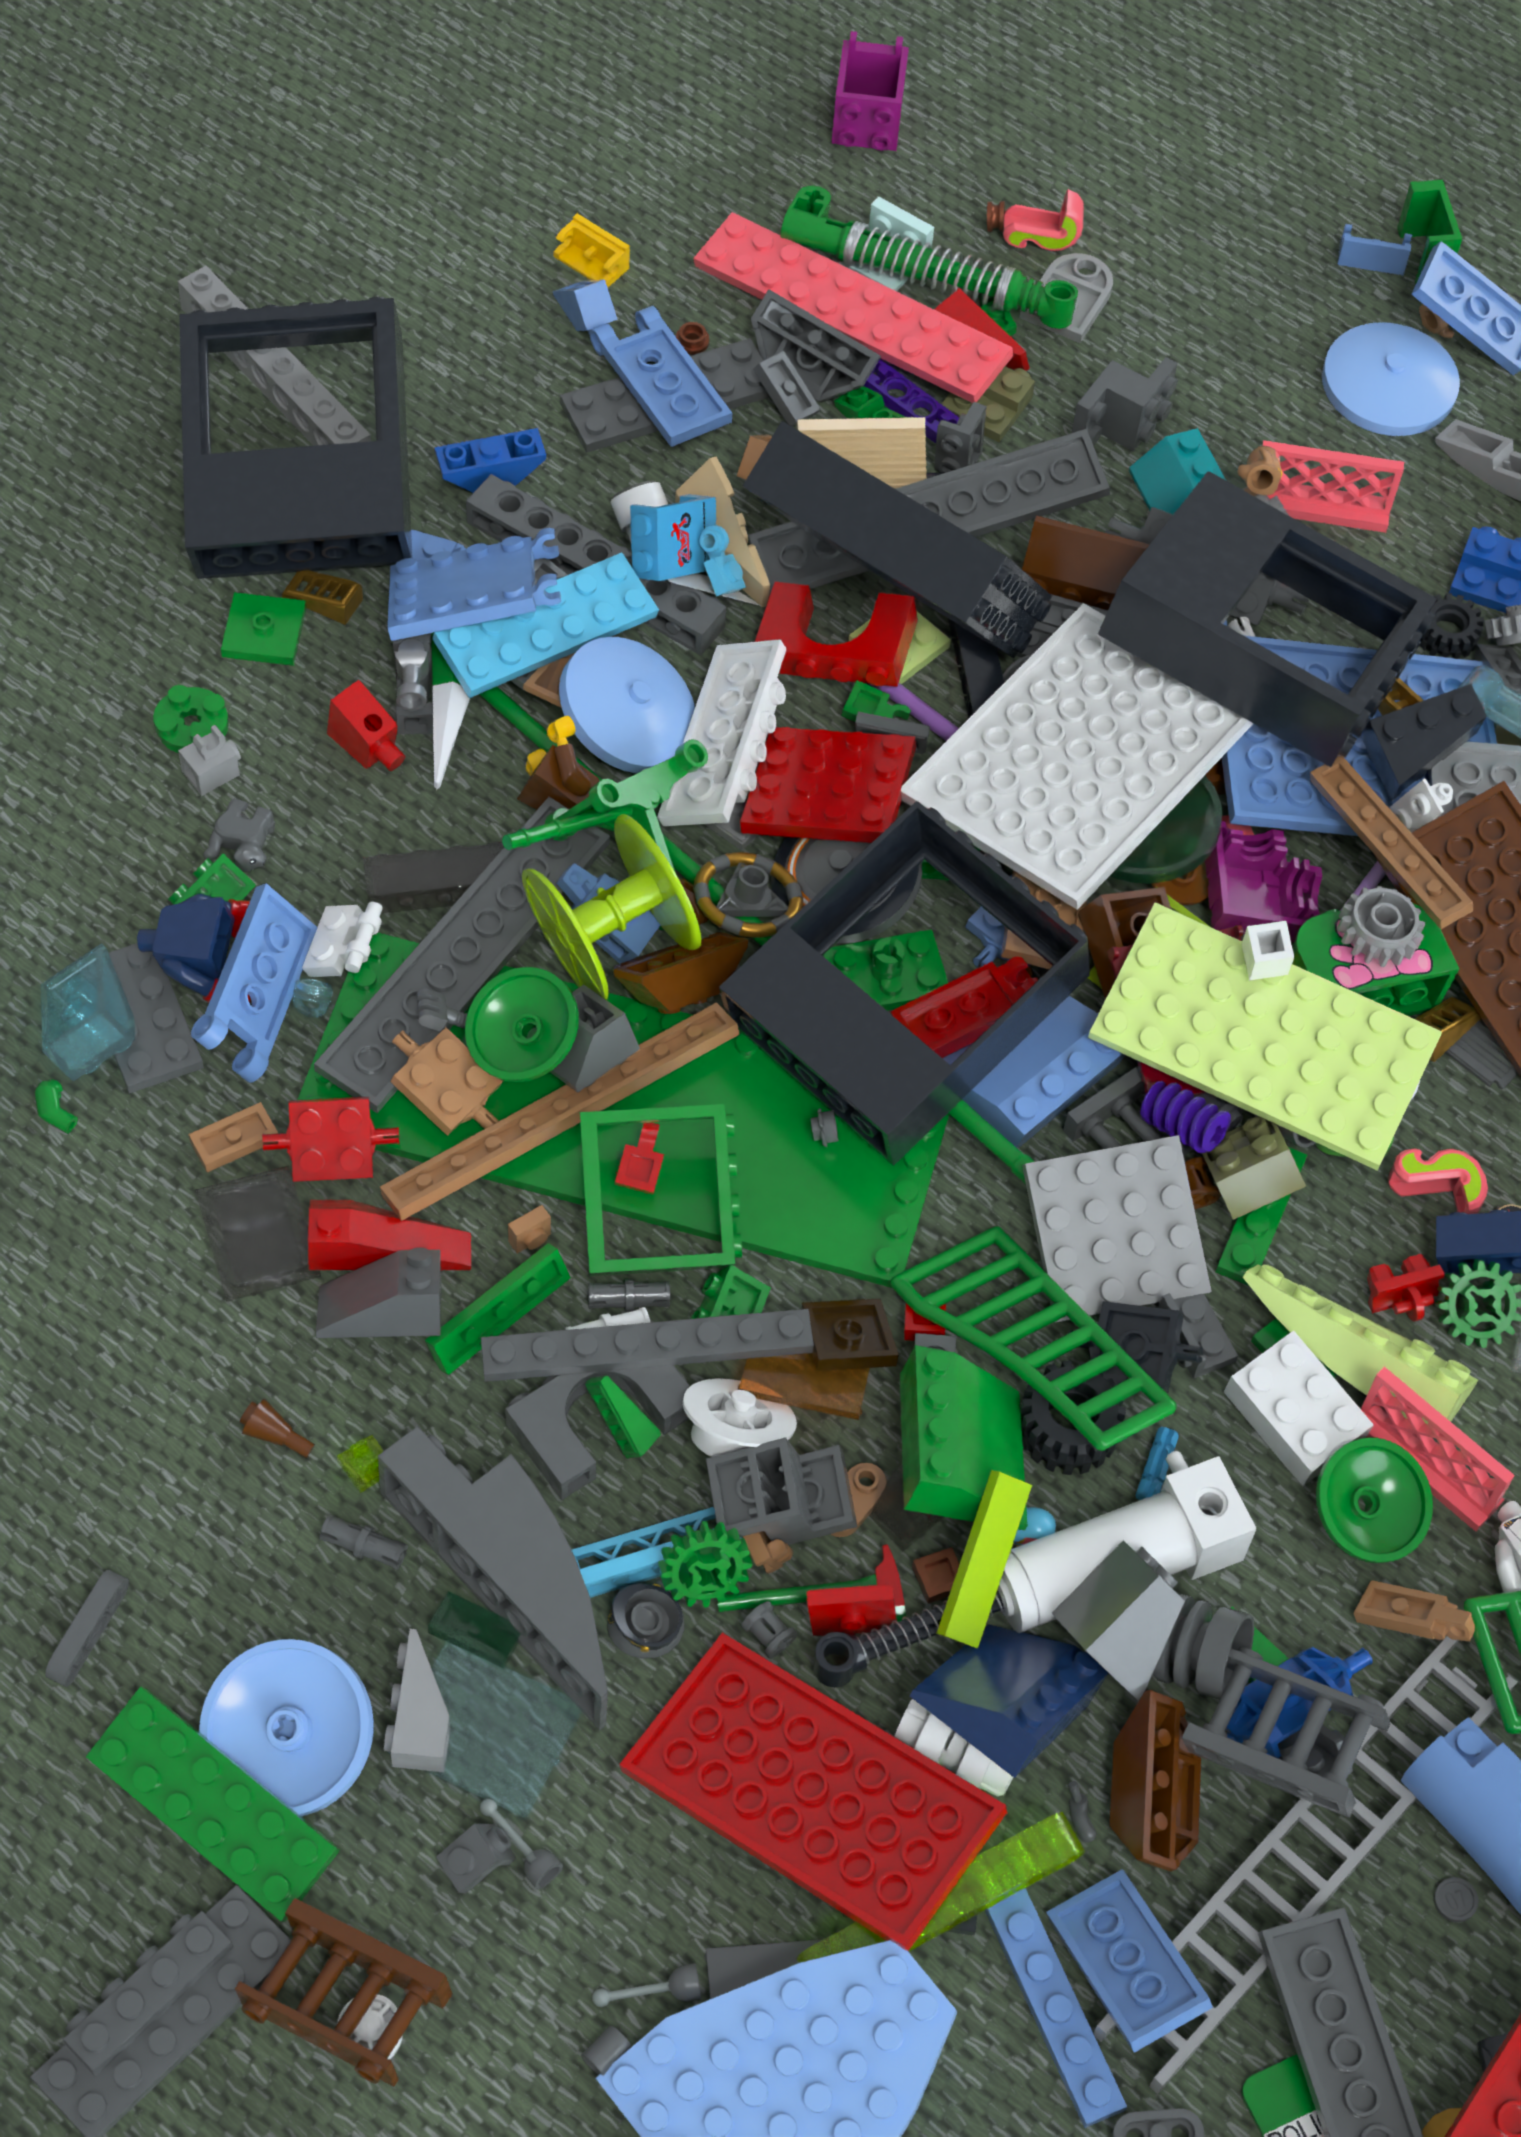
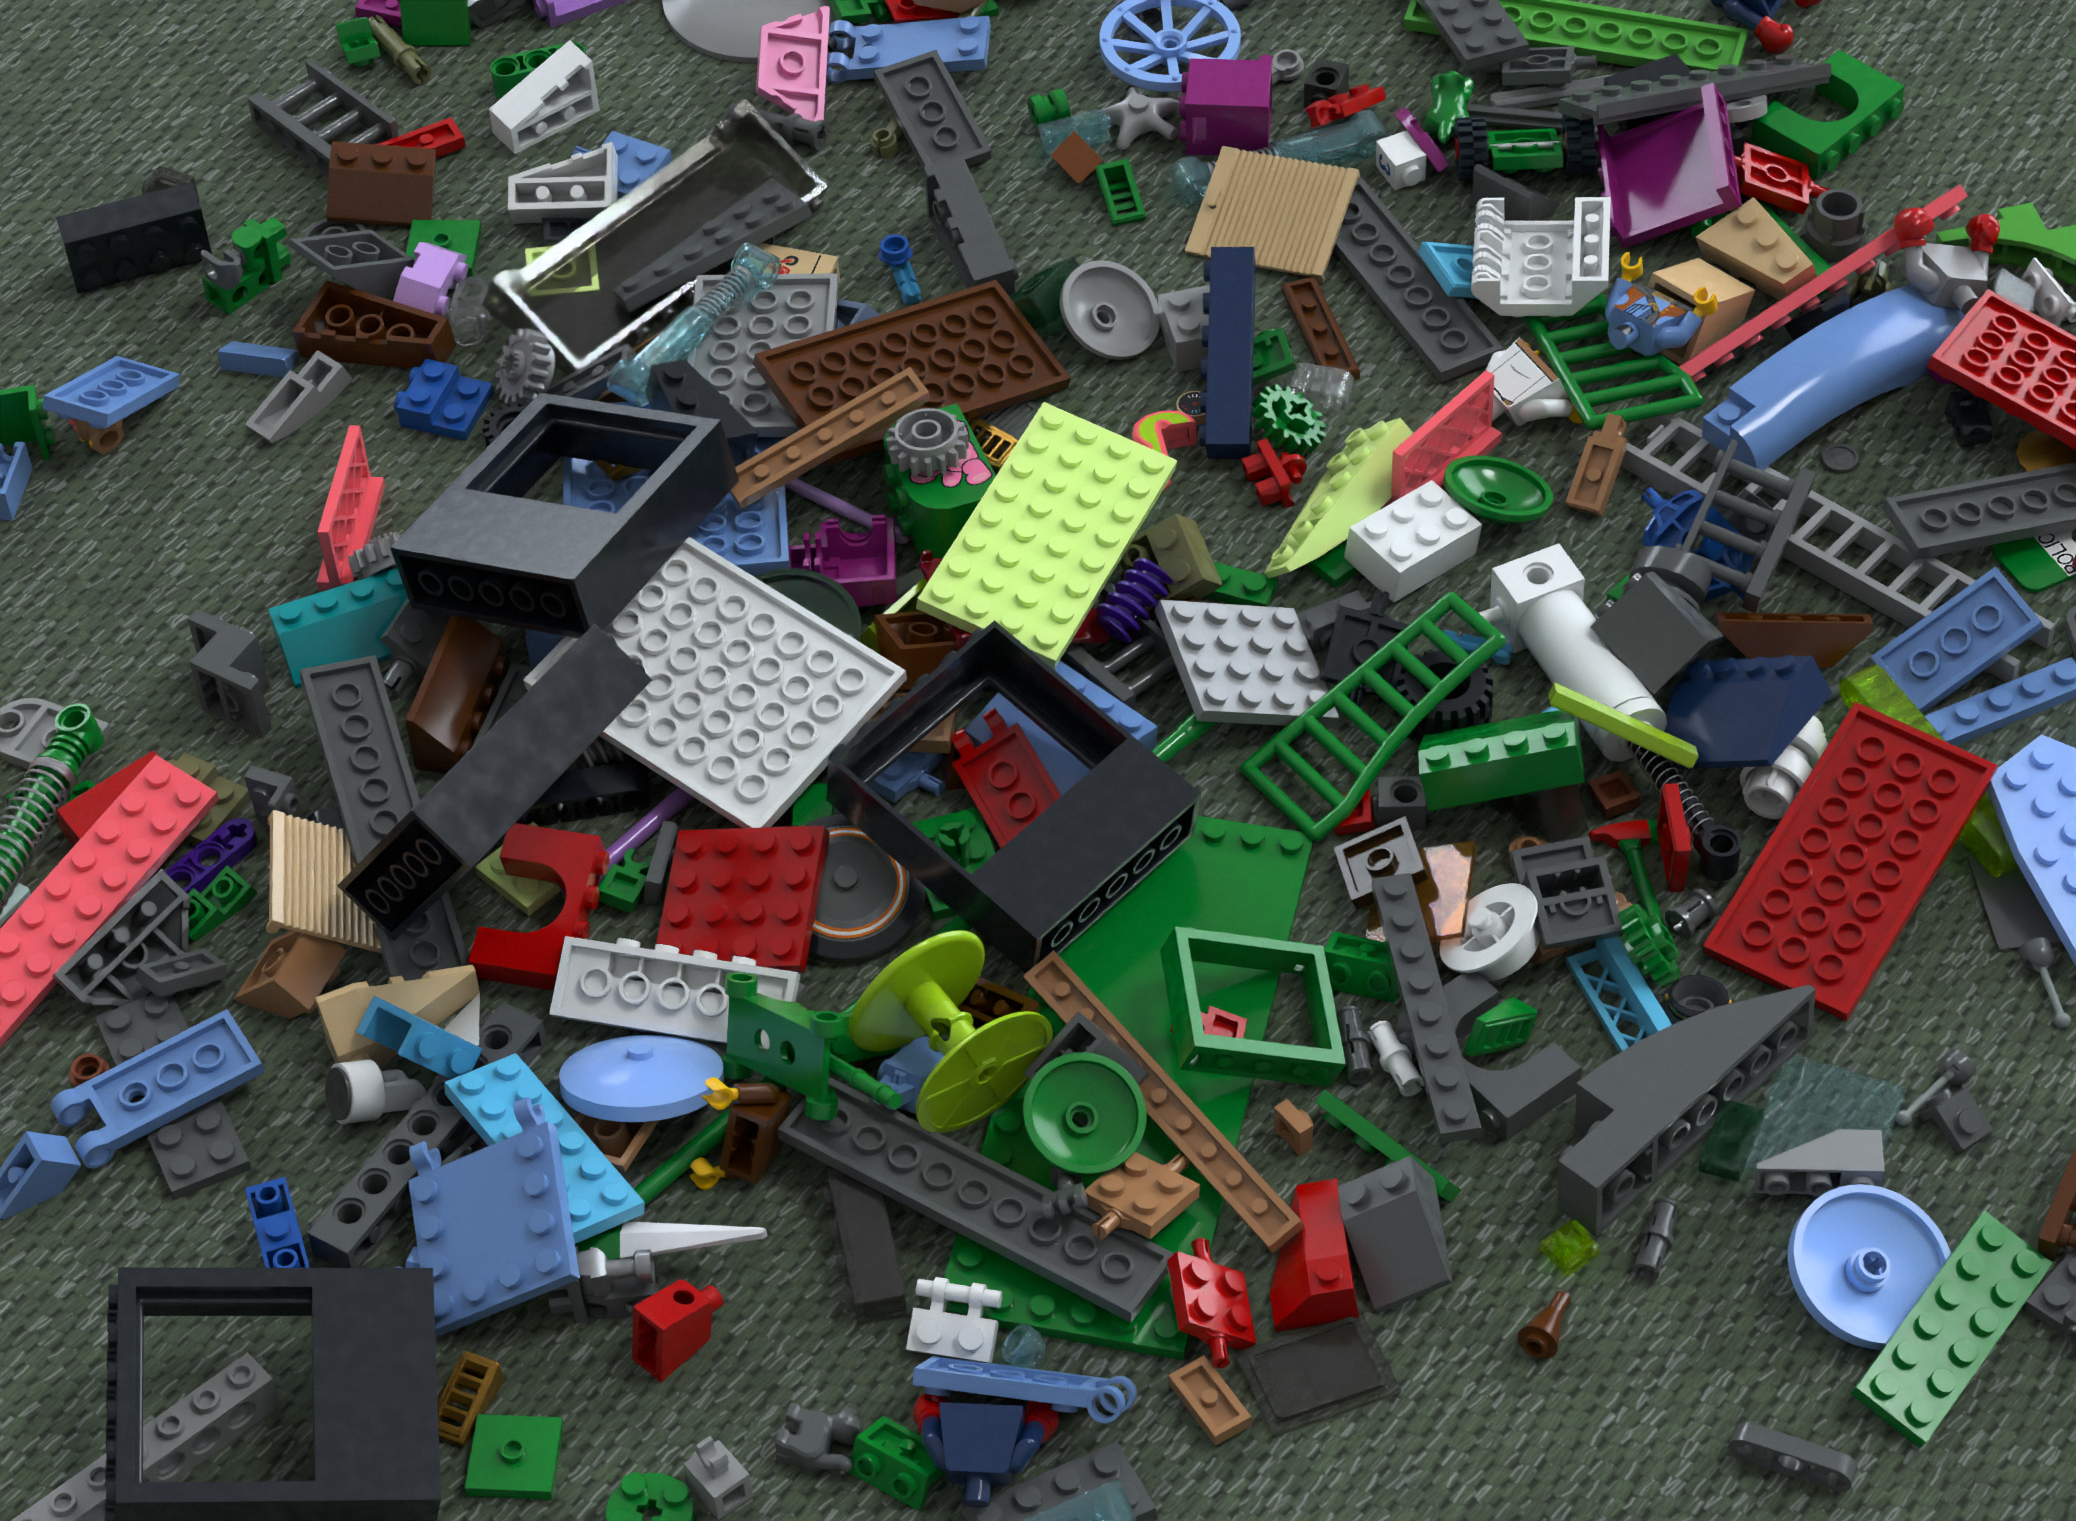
camera: 85 degrees left, 10 degrees down
(722, 569) = (456, 1002): medium azure plate -> none
(748, 894) = (884, 942): dark grey piece -> none
(824, 1127) = (1155, 887): dark grey plate -> none
(1261, 471) = (359, 530): medium nougat animal -> none
(1267, 950) = (986, 499): white brick -> none
(1390, 379) = (182, 476): light blue dish -> none
(1422, 804) = (780, 416): white hinge -> none

